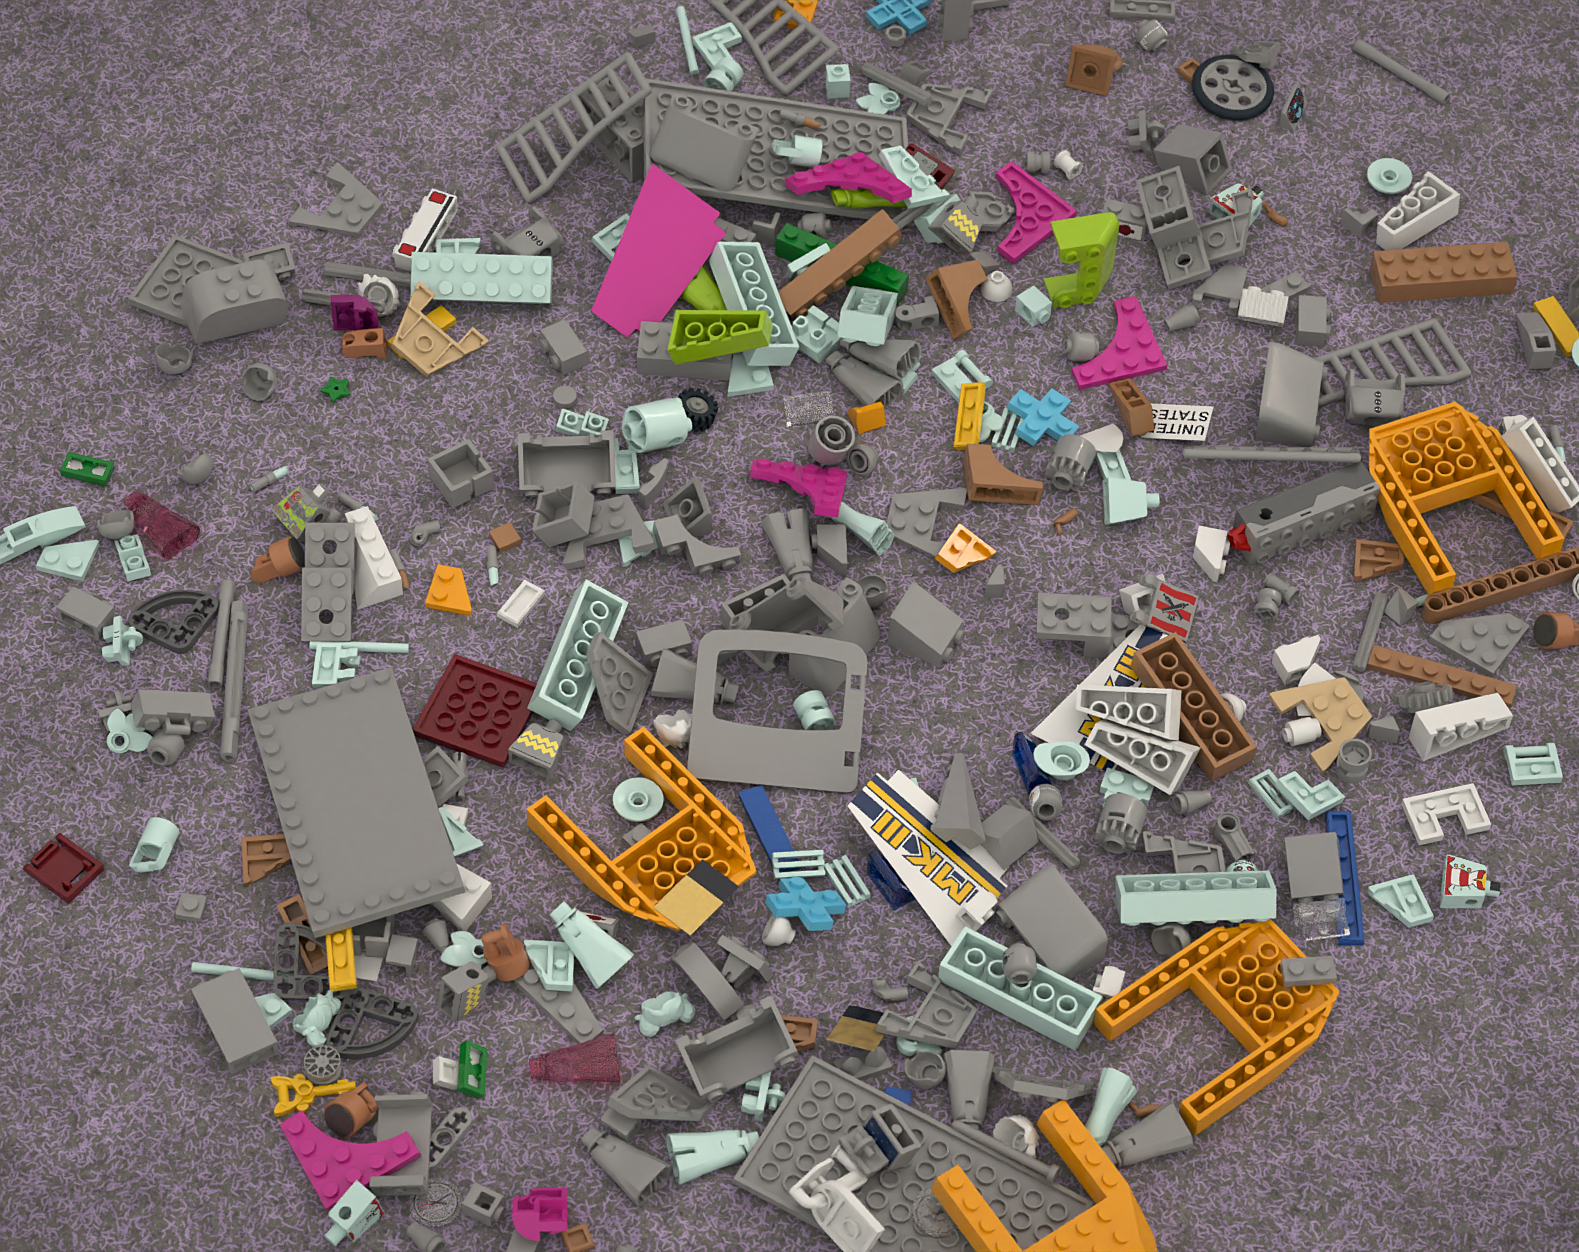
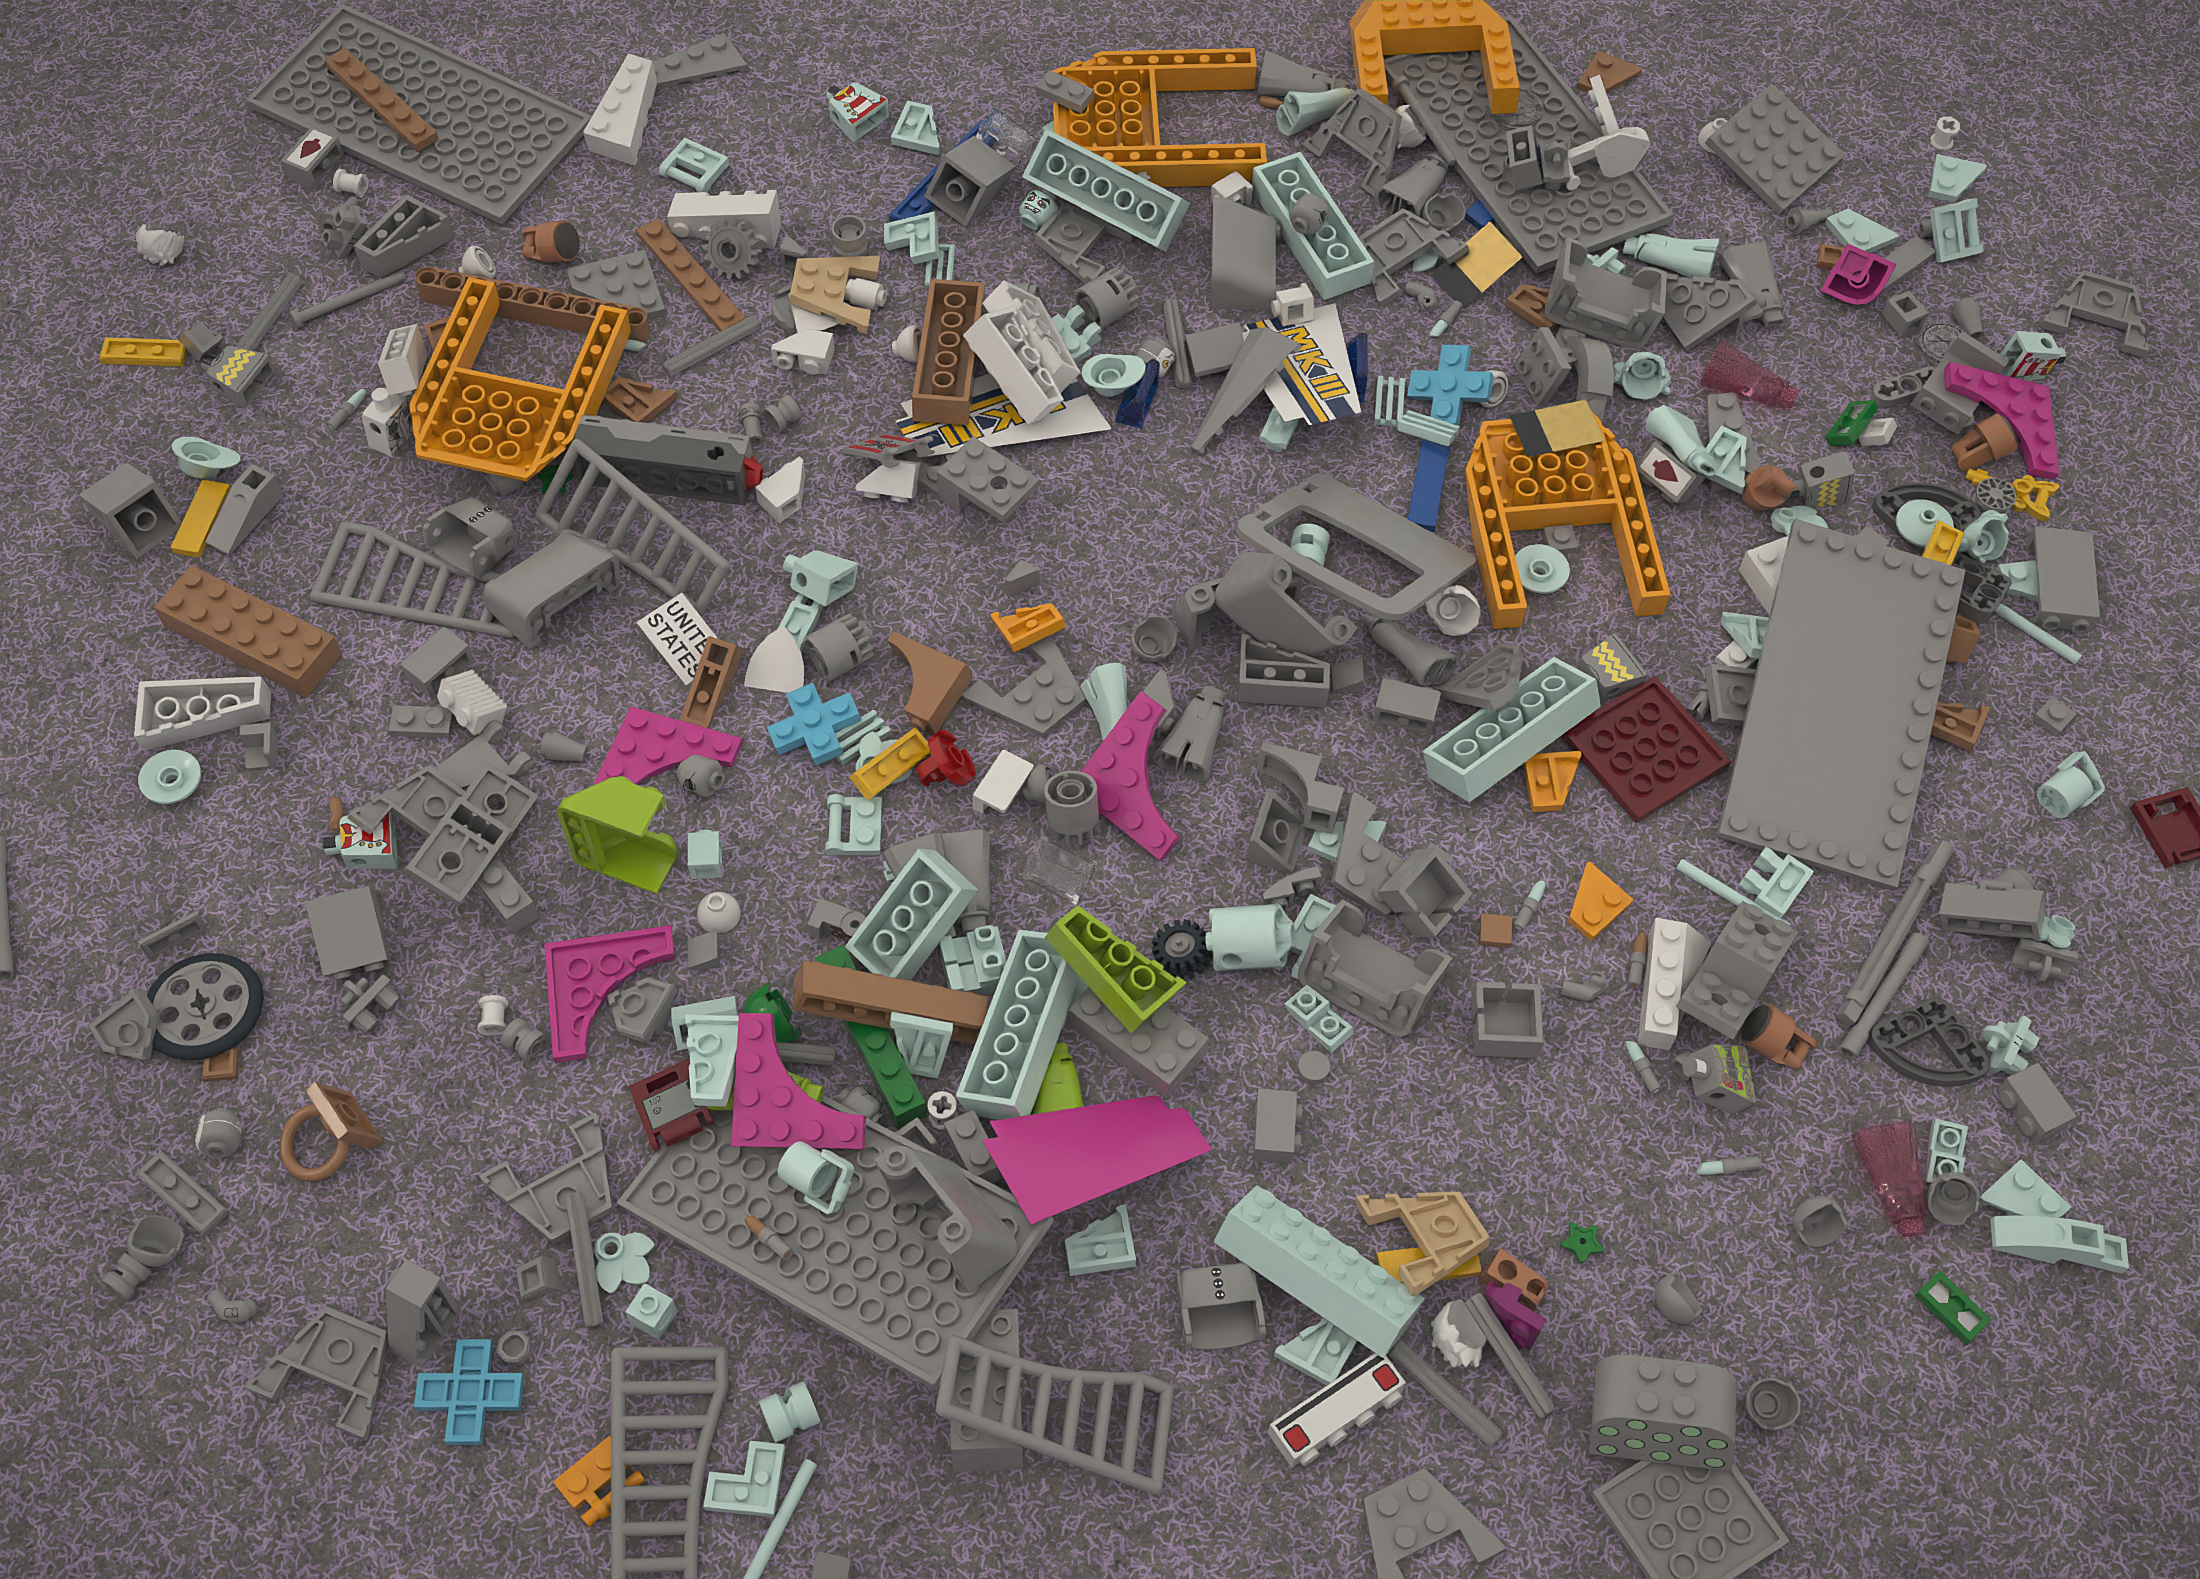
camera: 145 degrees left, 5 degrees up
(278, 256) = (1577, 1471): light grey bracket -> none
(368, 1016) = (1917, 519): none -> light aqua dish
(521, 603) = (1525, 844): white tile -> none
(530, 650) = (1549, 779): none -> light orange wing
(770, 249) = (935, 1105): none -> white bush
(855, 982) = (1446, 319): none -> light grey piece
(867, 417) = (1002, 830): light orange tile -> none
(889, 441) = (1002, 783): none -> white panel
(914, 241) = (769, 1002): none -> green cylinder
(924, 627) = (1134, 569): light grey slope -> none
(933, 433) = (946, 762): none -> red tile
(952, 290) = (777, 915): medium nougat arch -> none
(958, 225) = (701, 988): light grey torso -> none
(1066, 518) = (891, 612): medium nougat piece -> none
(1233, 839) = (1014, 245): light grey piece -> none
(1401, 607) = (663, 341): light grey slope -> none
(1425, 809) = (790, 170): white plate -> none

